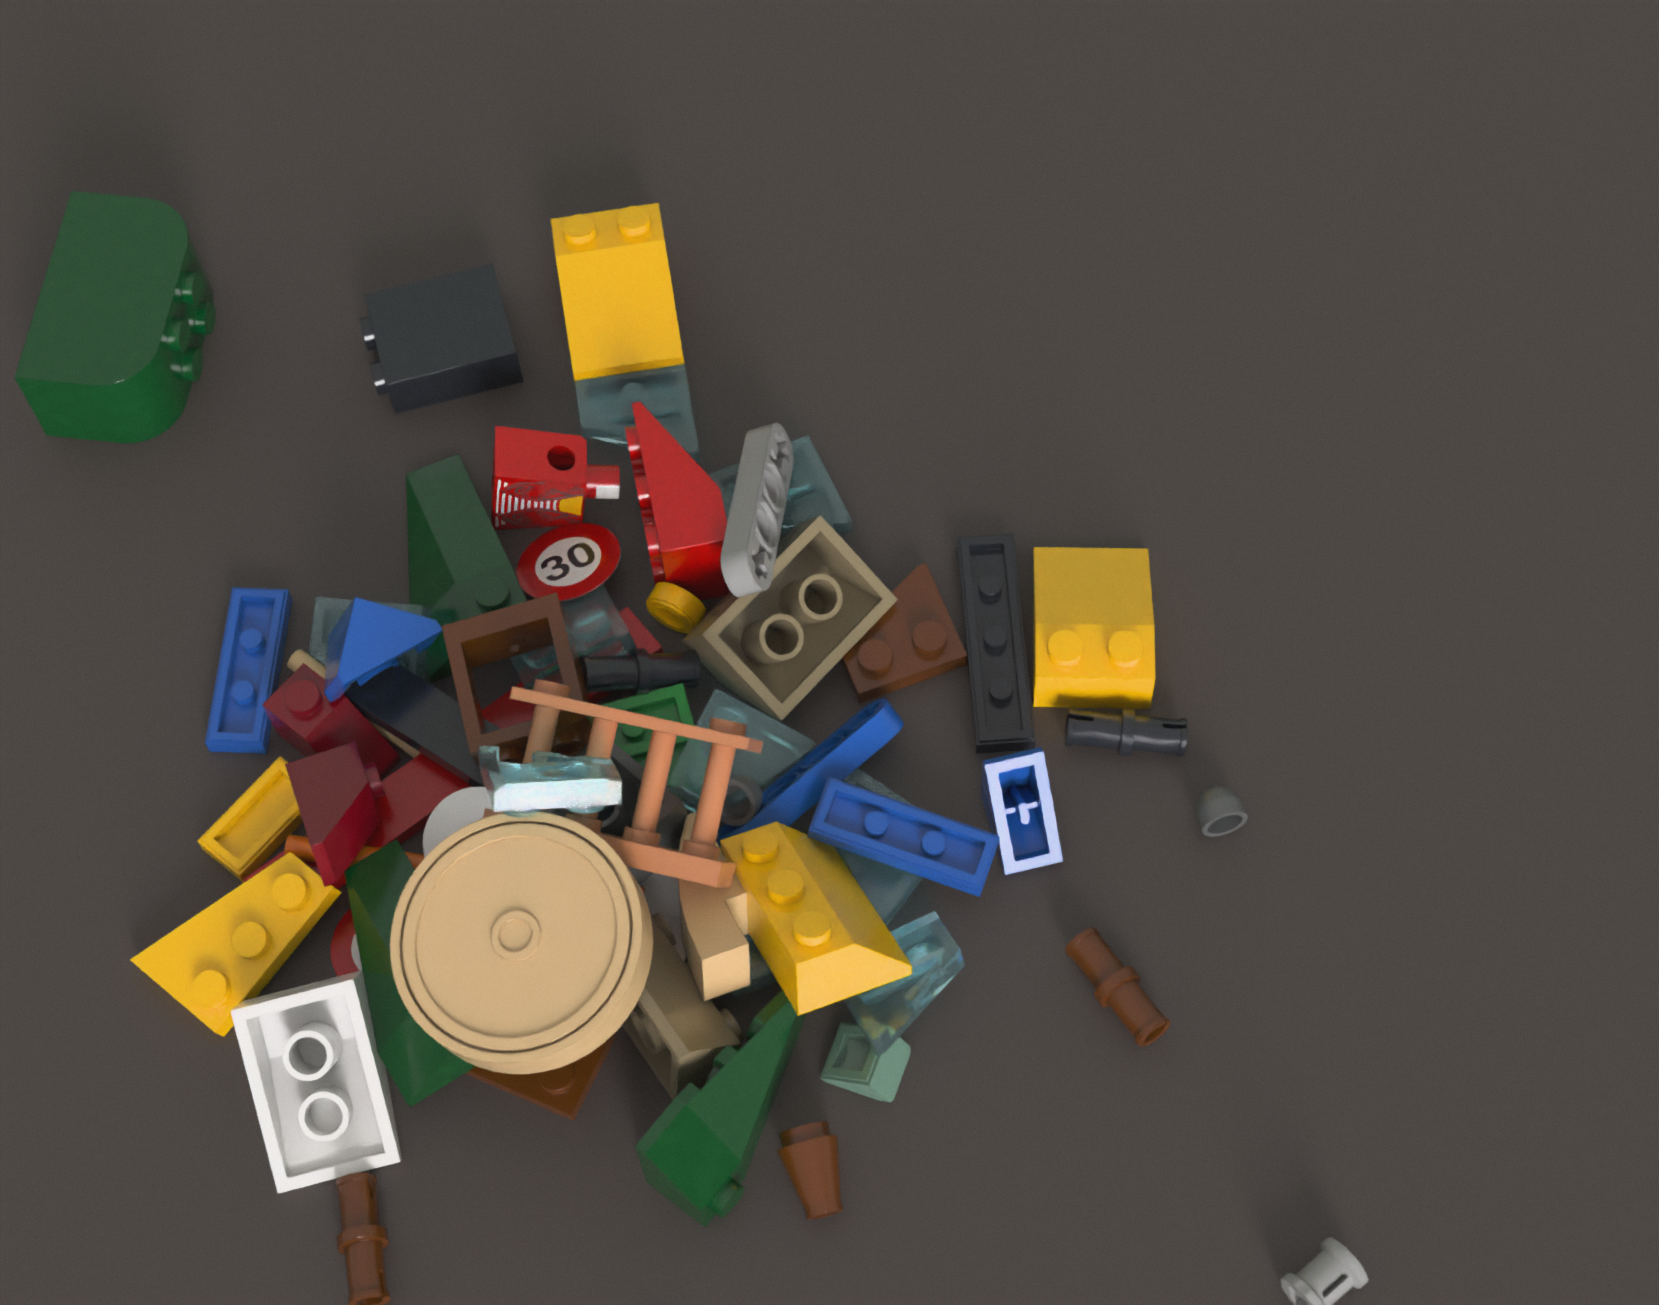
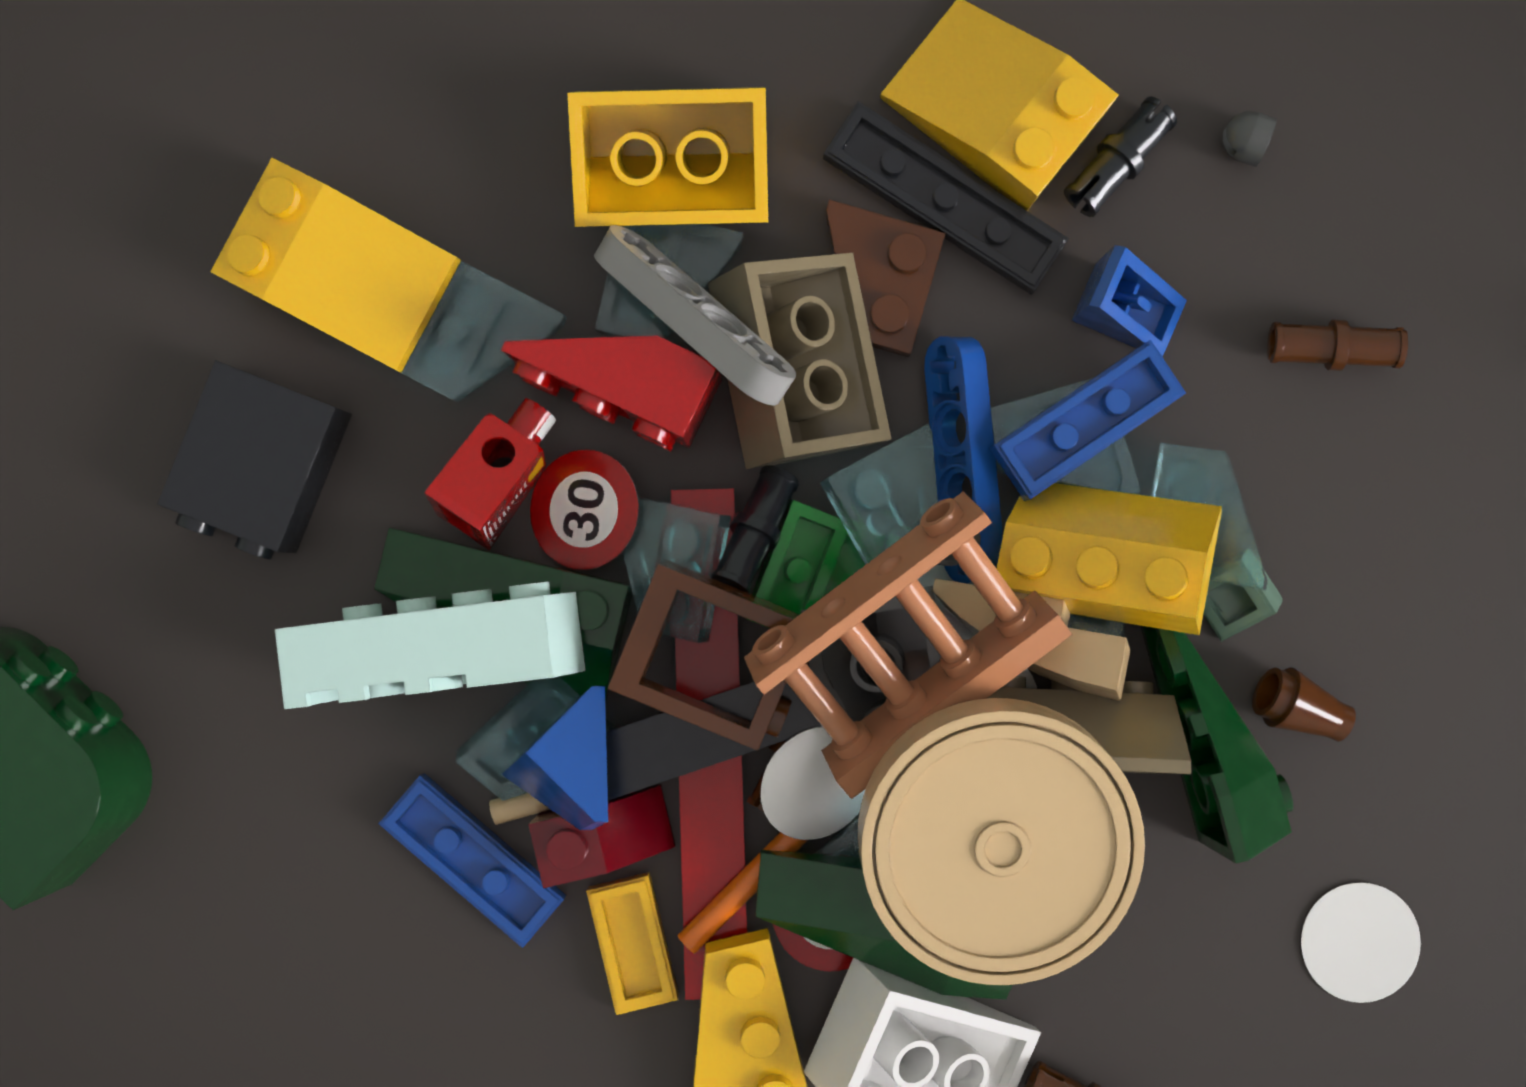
camera: 55 degrees left, 25 degrees up
(336, 805) = (695, 890): dark red slope -> none
(387, 511) = (432, 647): none -> light aqua wedge
(548, 782) = (875, 720): clear light blue wing -> none
(675, 607) = (707, 450): yellow tile -> none
(867, 435) = (669, 156): none -> yellow slope

